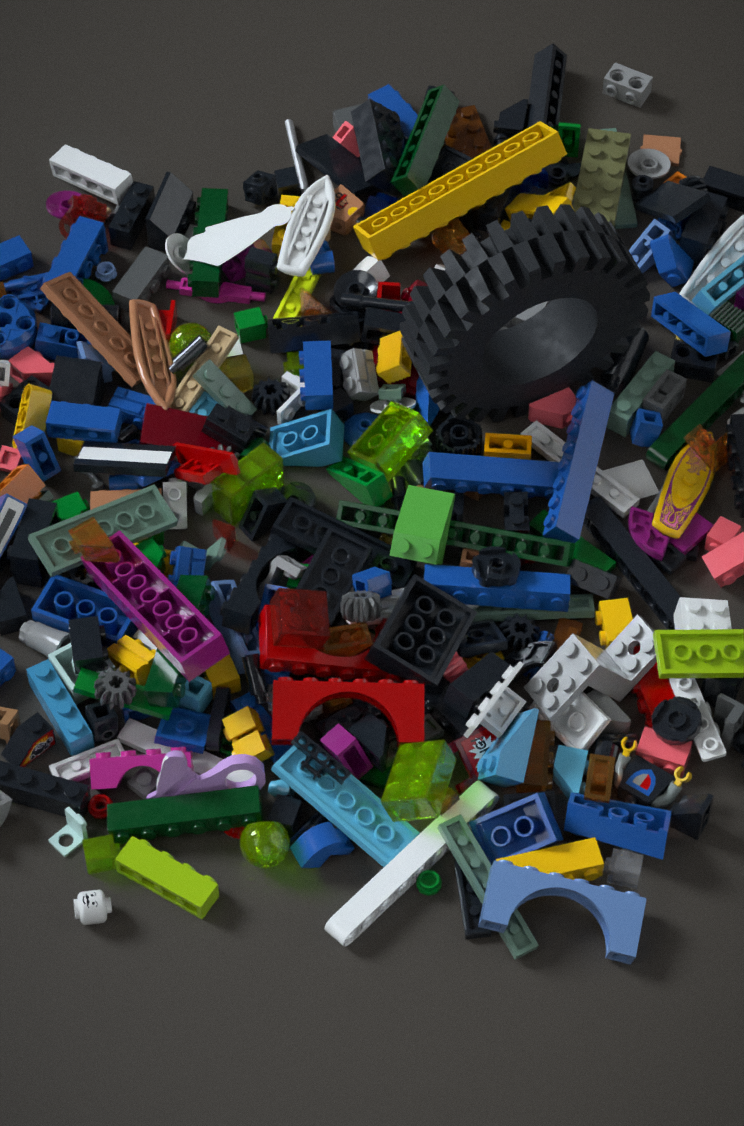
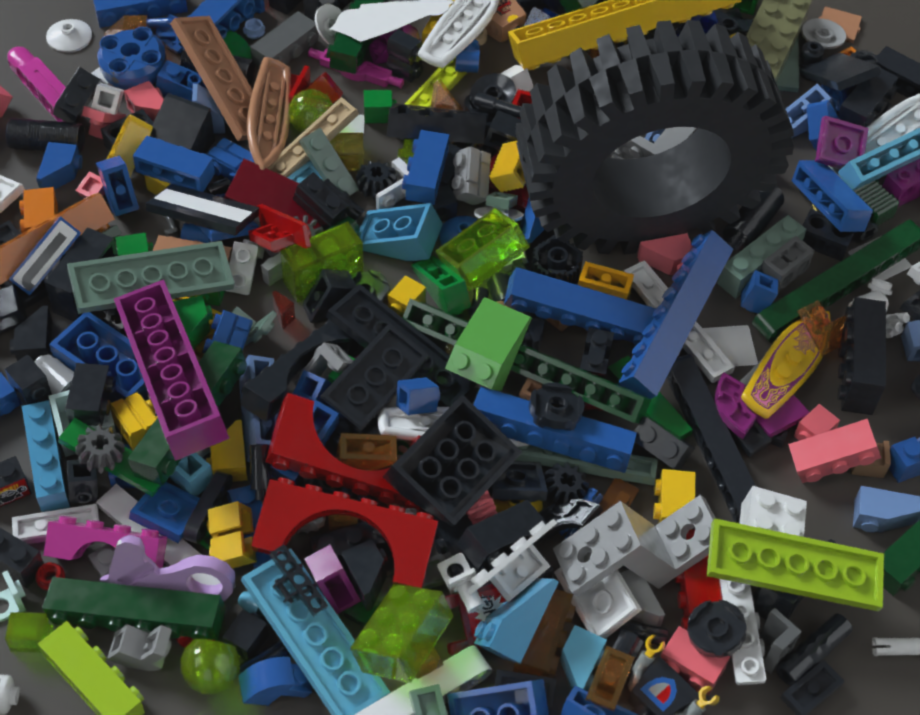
camera: 10 degrees right, 0 degrees up
(25, 648) = (28, 381): none -> black brick
(92, 542) = (127, 285): clear orange slope -> none
(189, 354) = (302, 119): black cylinder -> none
(194, 314) = (326, 85): none -> red panel
(201, 846) = (140, 649): none -> light grey brick
(299, 618) = (319, 416): clear red brick -> none
(330, 496) = (402, 292): none -> yellow brick
(361, 606) = (395, 417): dark grey gear -> none
(456, 730) = (461, 582): none -> white bracket
(688, 272) = (840, 142): none -> magenta tile

